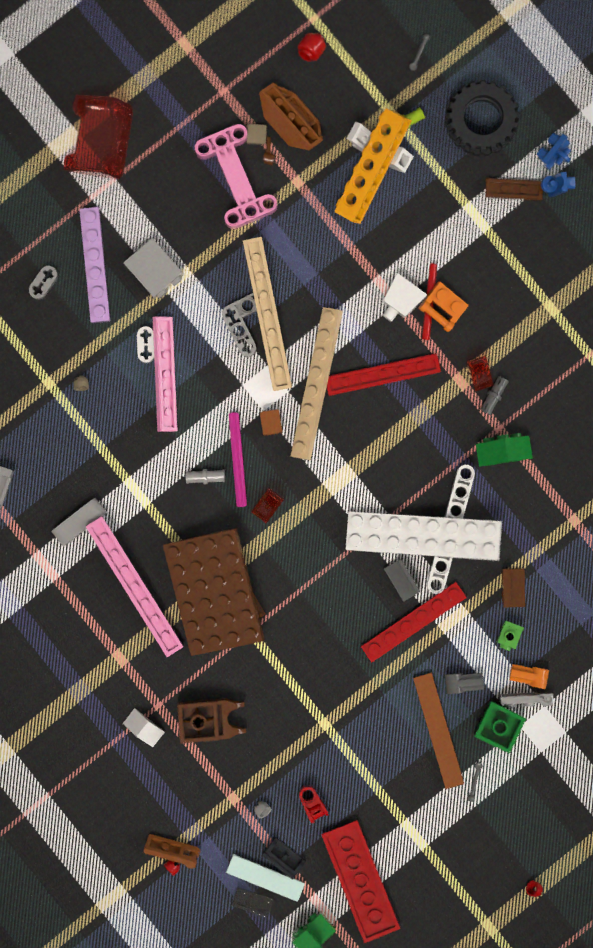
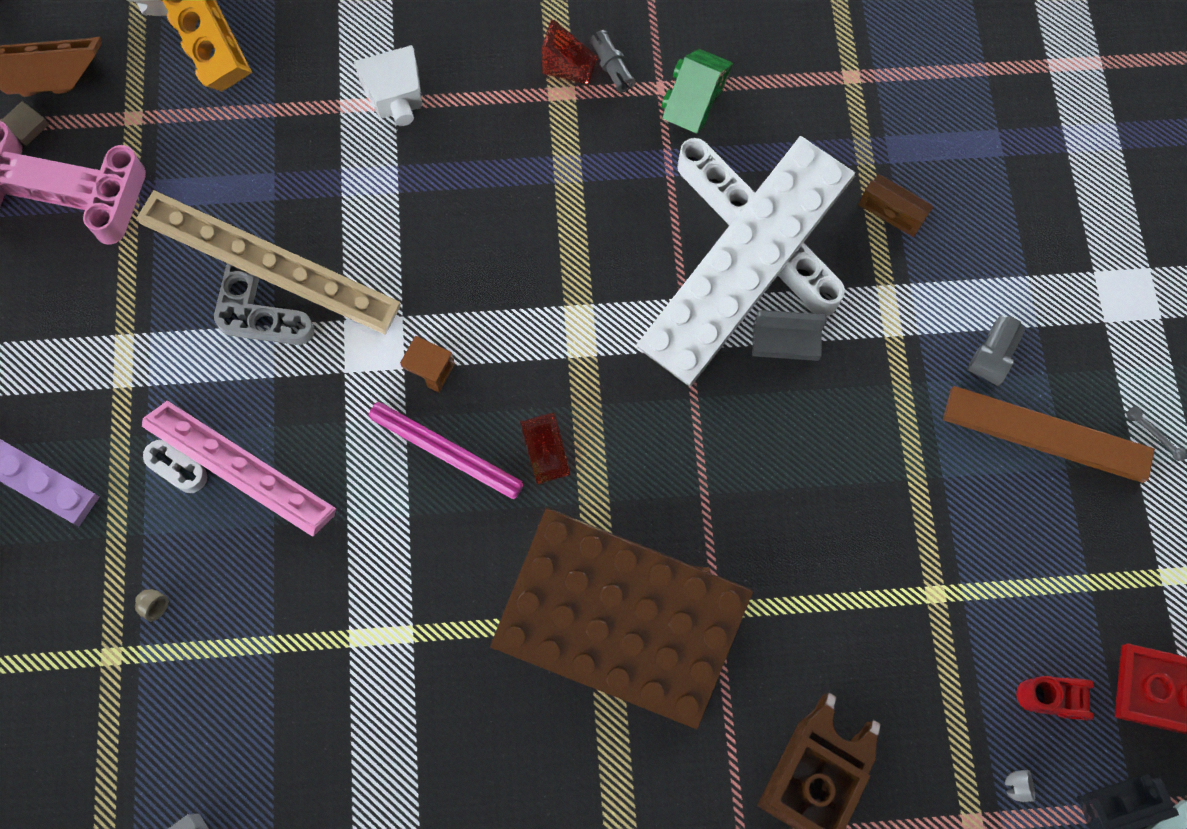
camera: 60 degrees left, 15 degrees down
(76, 523) = (356, 762): light grey beam -> none
(134, 586) = (521, 742): bright pink plate -> none
(154, 269) = (75, 375): light grey panel -> none
(205, 476) = (434, 513): light grey pin -> none
(268, 157) = (66, 127): reddish brown hand -> none
(316, 383) = (423, 269): tan plate -> none
(383, 374) = (475, 181): red tile -> none
(413, 622) = (860, 368): red plate -> none
(427, 318) = (427, 61): red bar -> none
(446, 301) = (444, 36): orange plate -> none
(499, 727) = (1099, 340): green brick -> none
(509, 627) = (964, 247): bright green brick -> none
(526, 699) = (1073, 284): light grey hinge -> none
(533, 676) = (1044, 254): orange piece -> none

